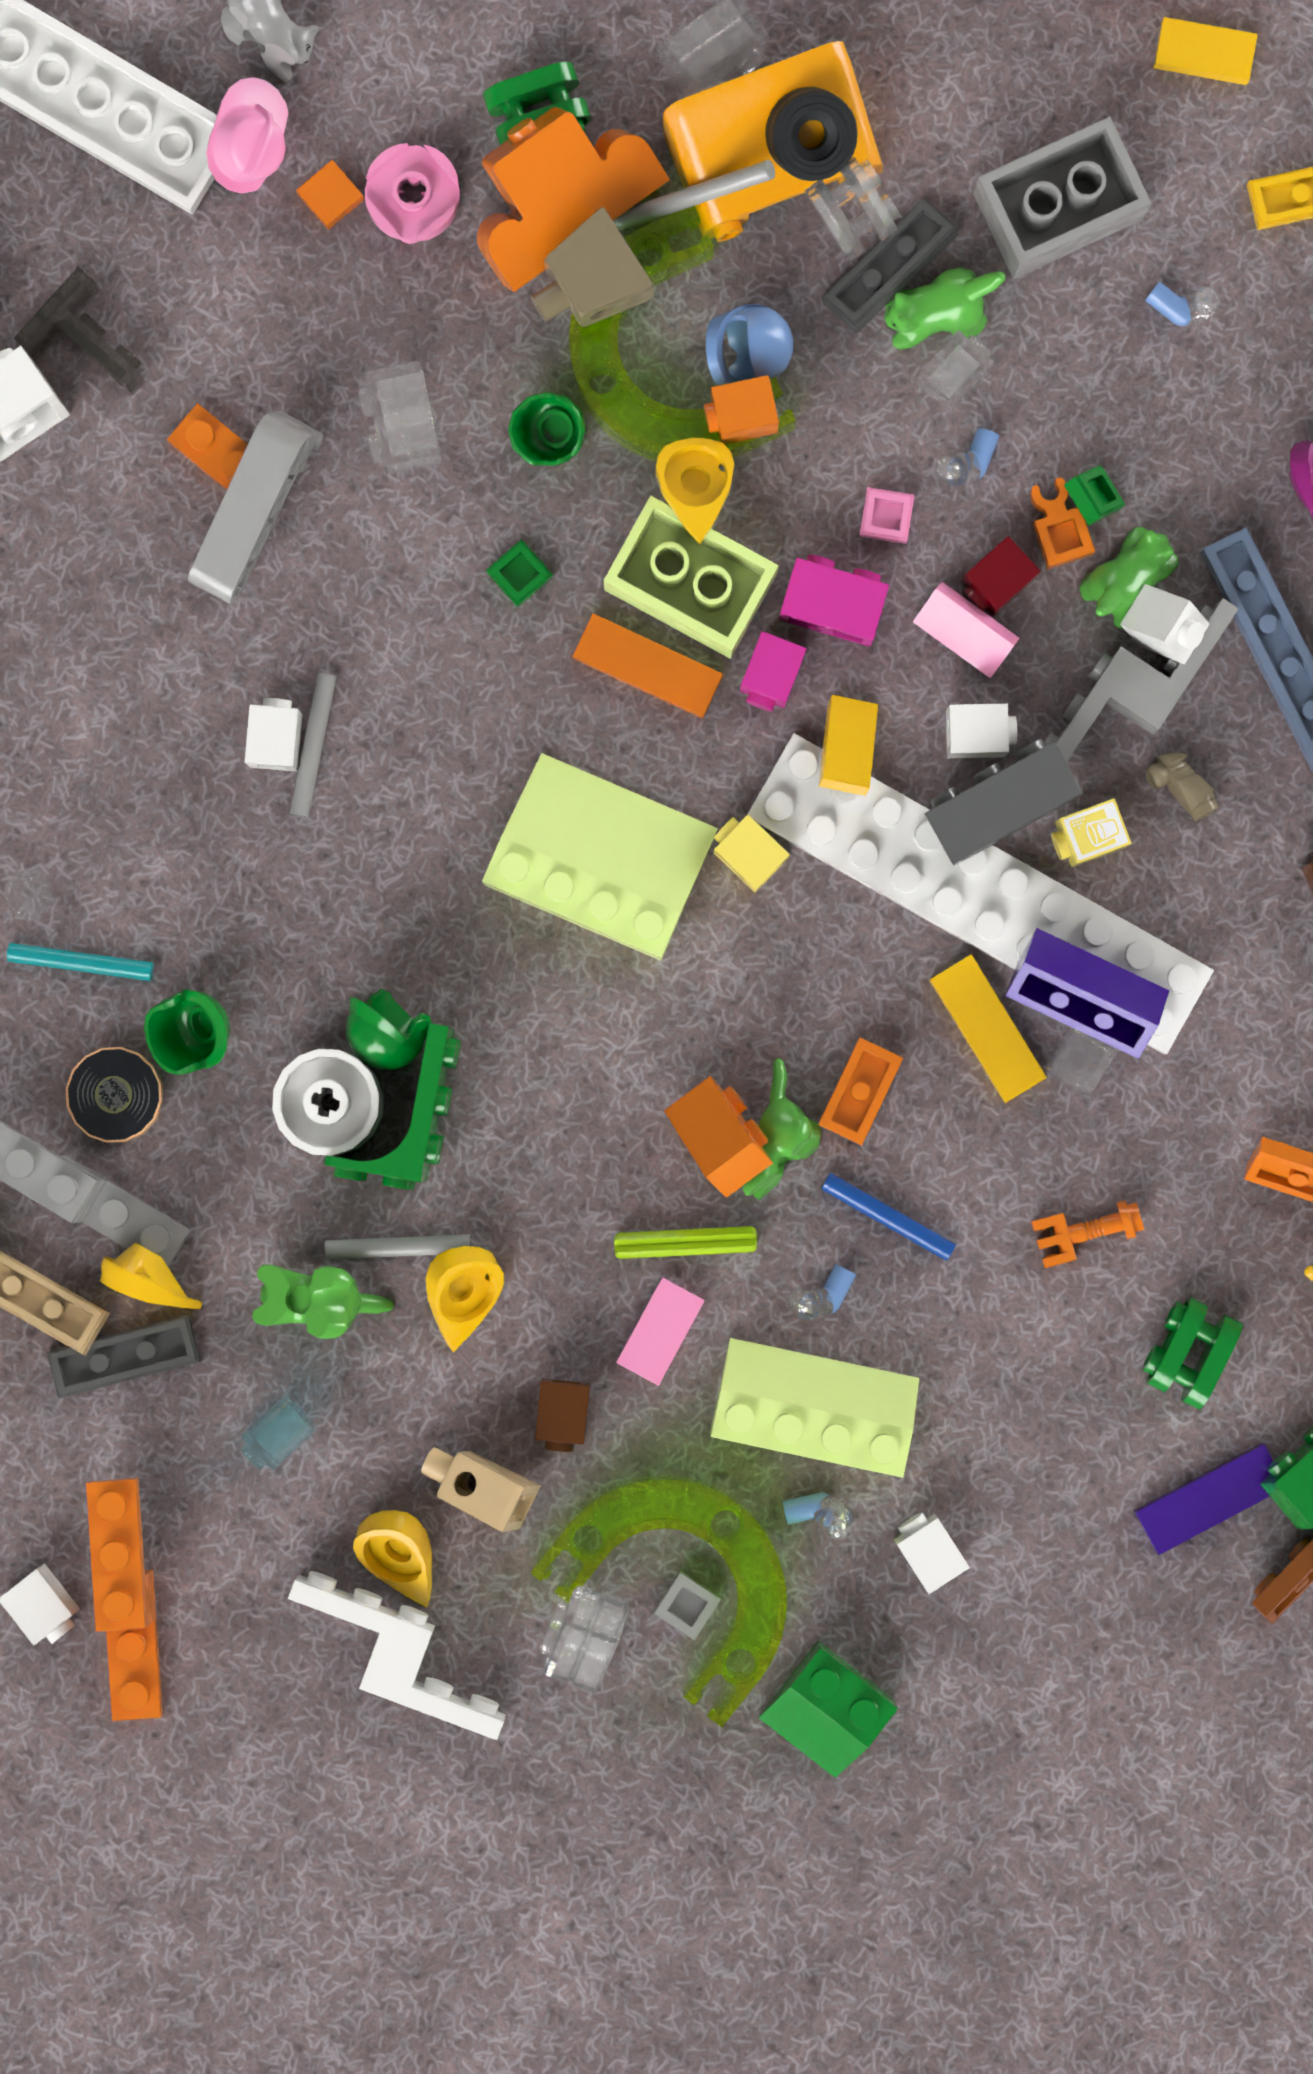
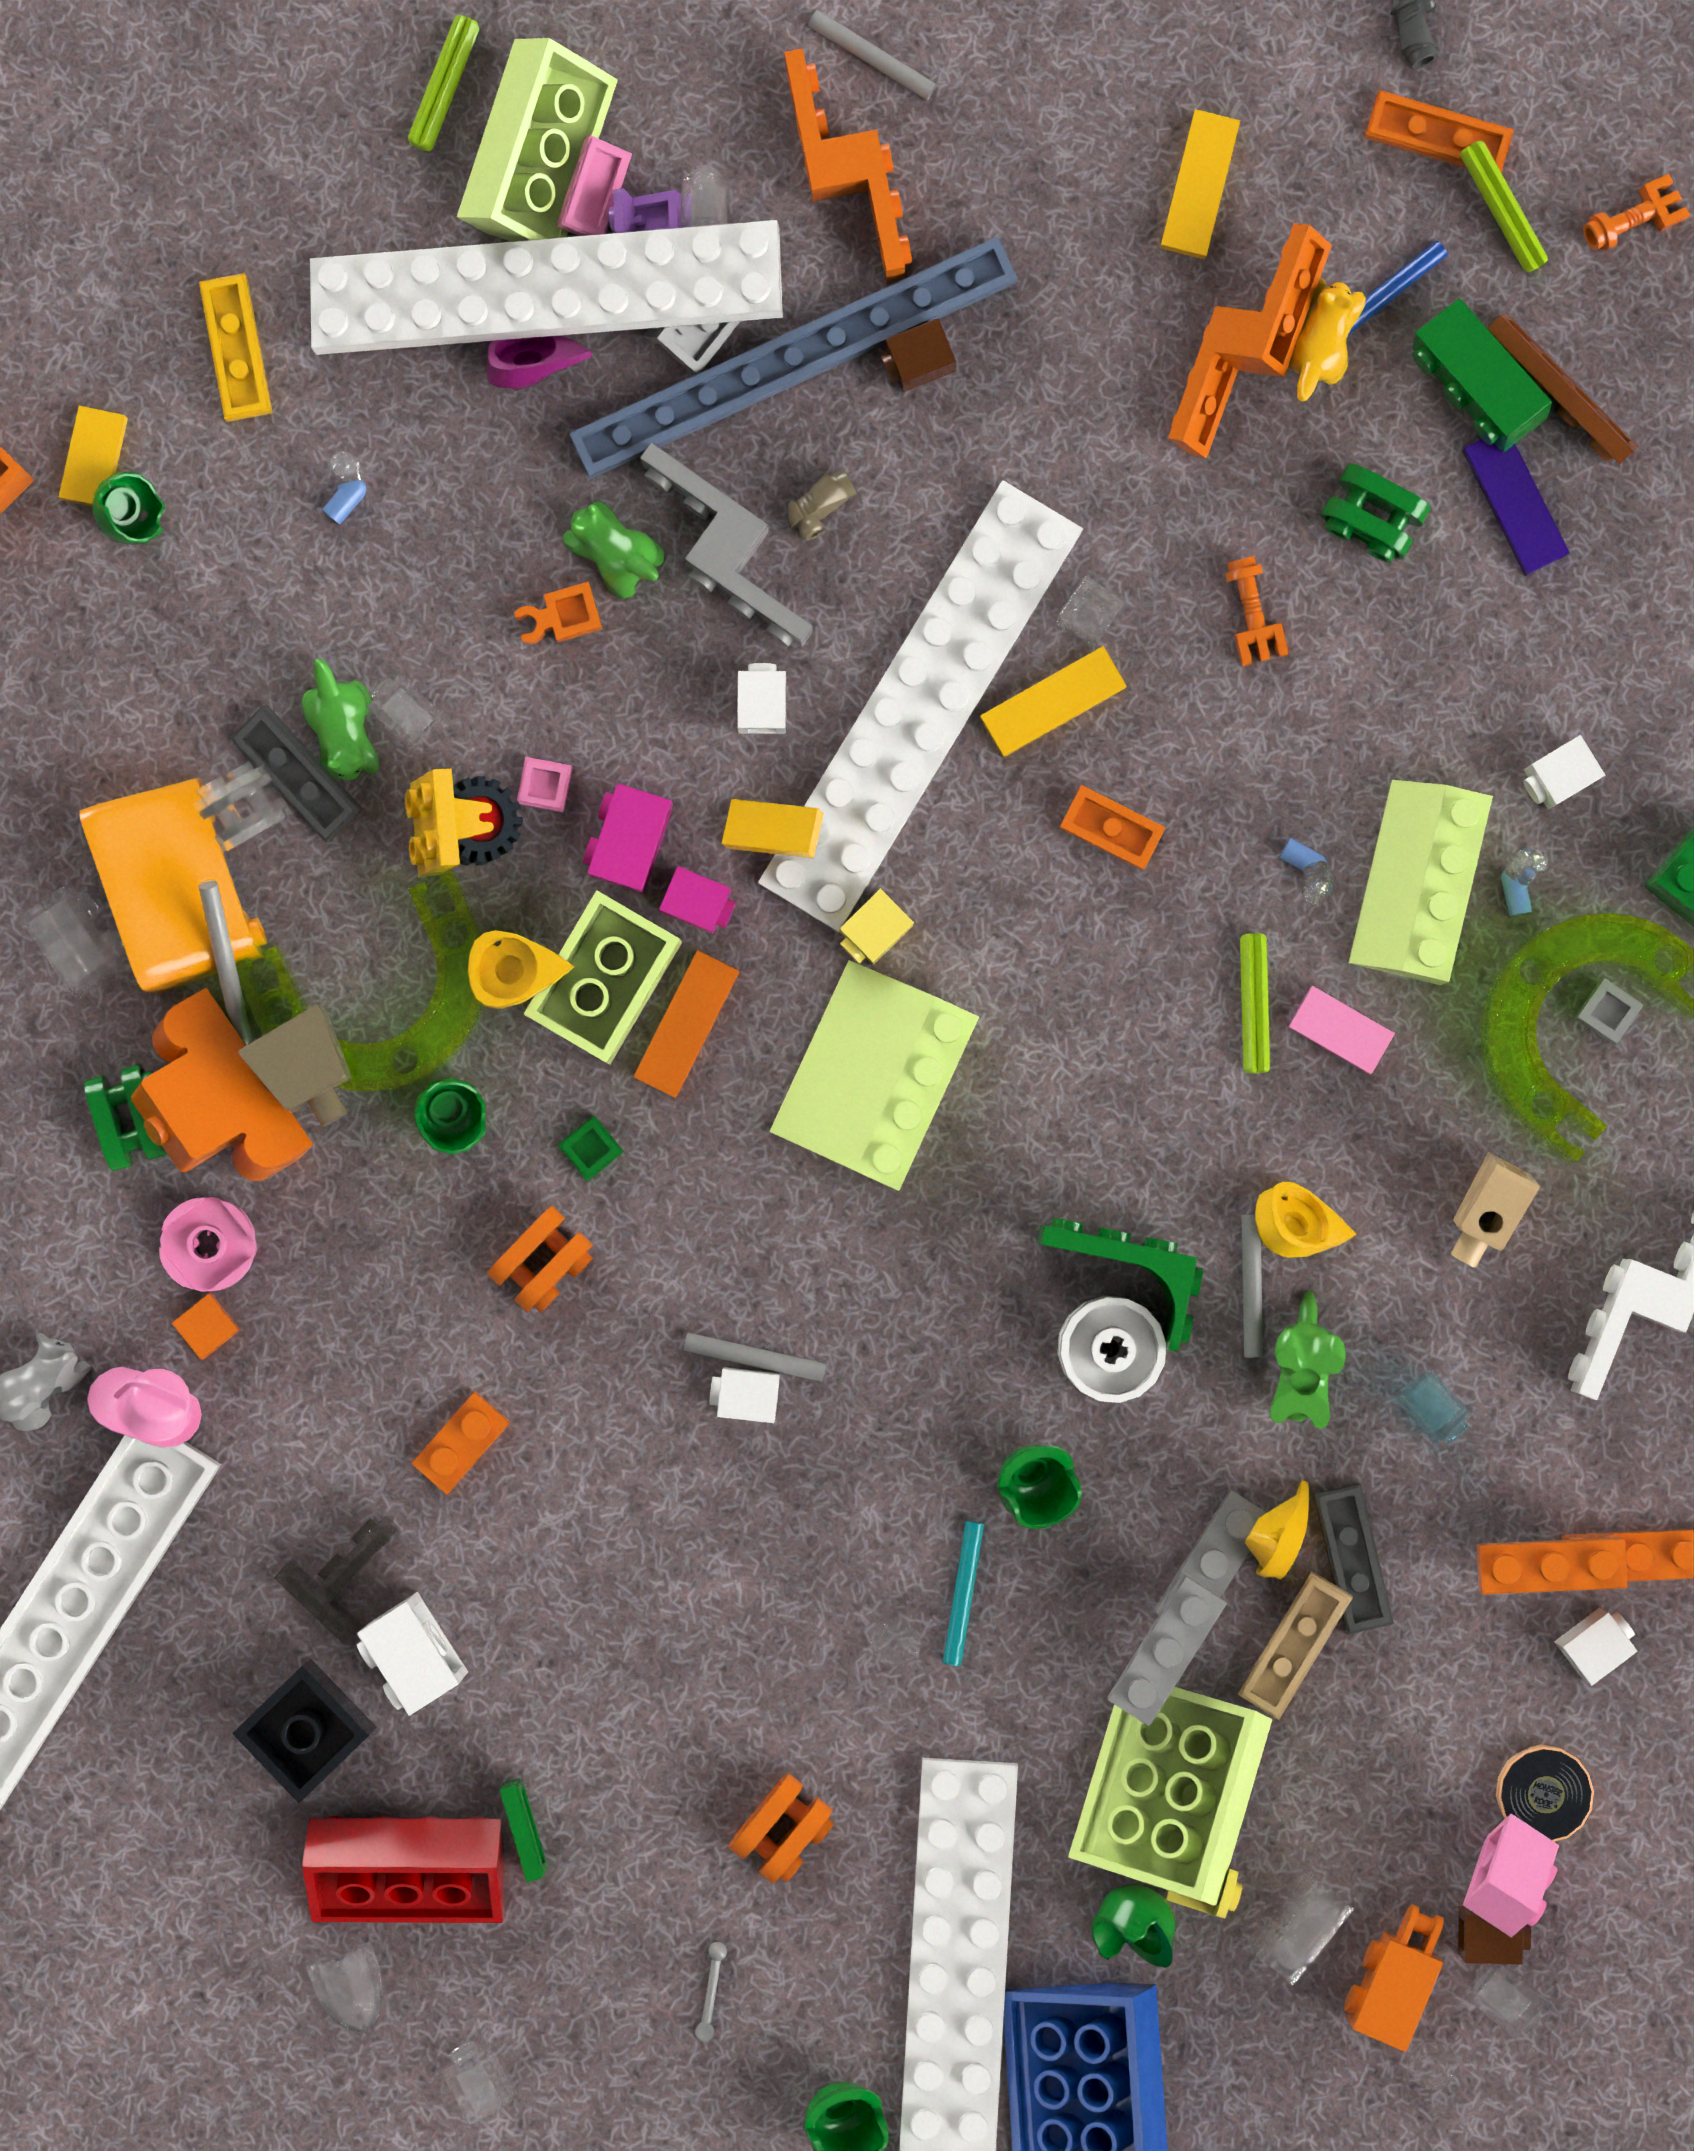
camera: 90 degrees left, 0 degrees up
(114, 1094) = (1096, 1561): black tile -> none
(252, 504) = (516, 1409): light grey beam -> none
(384, 1032) = (1043, 1292): green helmet -> none
(397, 1552) = (1551, 1293): yellow piece -> none
(402, 418) = (434, 1260): clear brick -> none
(407, 554) = (539, 1289): none -> orange brick
(562, 1414) = (1420, 1127): reddish brown brick -> none
(583, 1638) = (1641, 1111): clear brick -> none
(718, 1135) = (1156, 965): orange brick -> none
(742, 410) = (442, 921): orange brick -> none
(758, 338) = (372, 902): medium blue helmet -> none
(788, 1131) = (1155, 906): bright green animal -> none
(838, 139) = (190, 825): black tyre -> none
(845, 434) = (459, 821): none -> yellow plate
(888, 1216) = (1234, 804): blue bar -> none
(966, 629) = (661, 710): bright pink tile -> none
(971, 464) = (497, 700): clear arm -> none
(999, 577) = (611, 676): dark red brick -> none
(1002, 801) = (836, 678): dark grey brick -> none
(1061, 197) = (237, 602): light grey brick -> none
(1087, 993) = (1026, 601): dark purple brick -> none
(1090, 833) = (866, 595): light yellow brick -> none
(1094, 495) = (532, 580): green tile -> none
(1154, 77) = (119, 505): none -> green hair
(1165, 624) = (664, 514): white brick -> none

